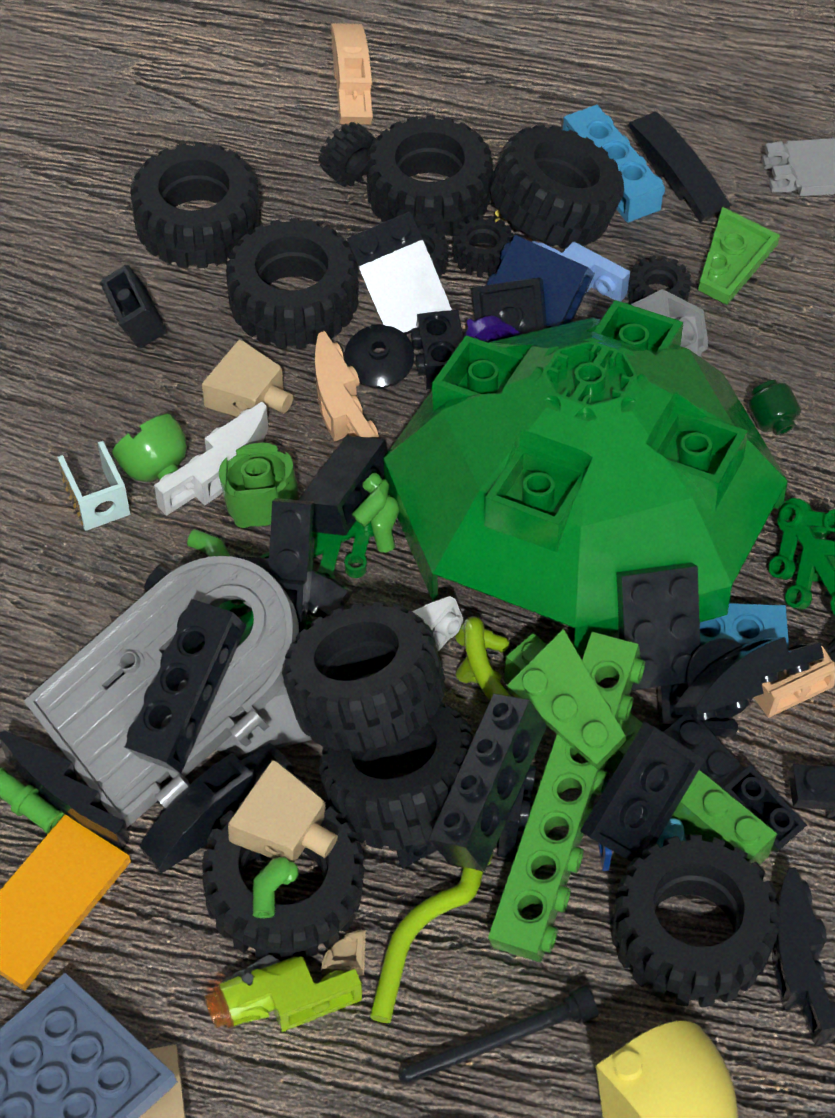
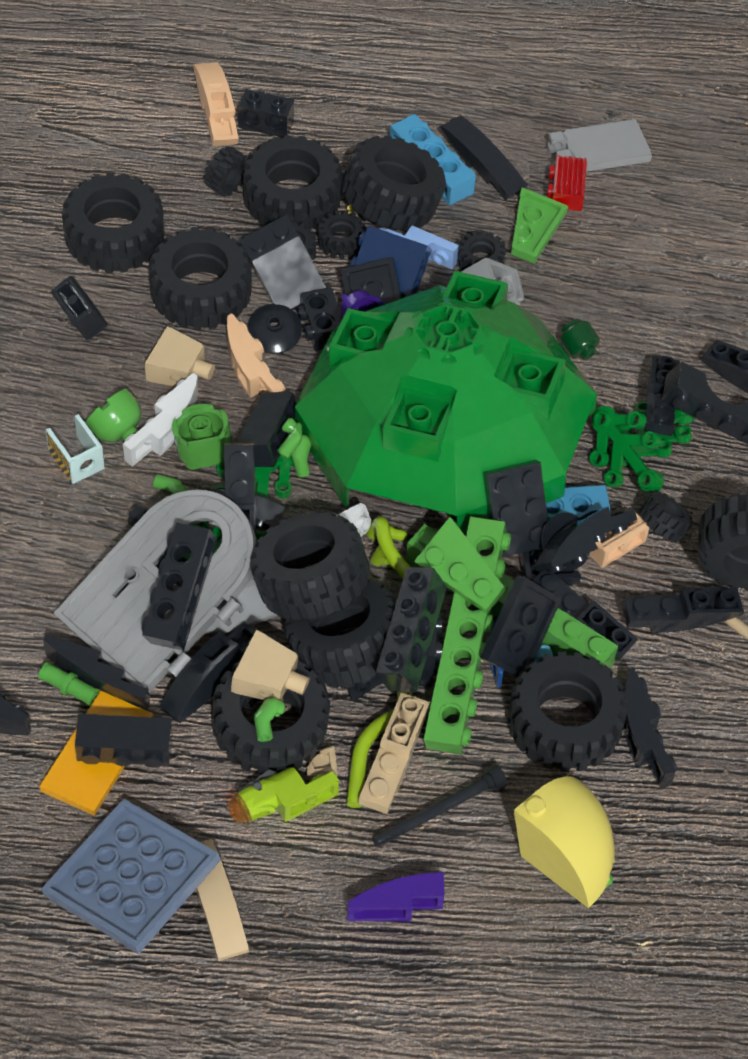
camera: 10 degrees left, 0 degrees up
(78, 890) = (124, 740): none -> black brick
(411, 89) = (266, 113): none -> black brick
(444, 953) = (394, 753): none -> tan slope
(784, 205) = (568, 181): none -> red brick

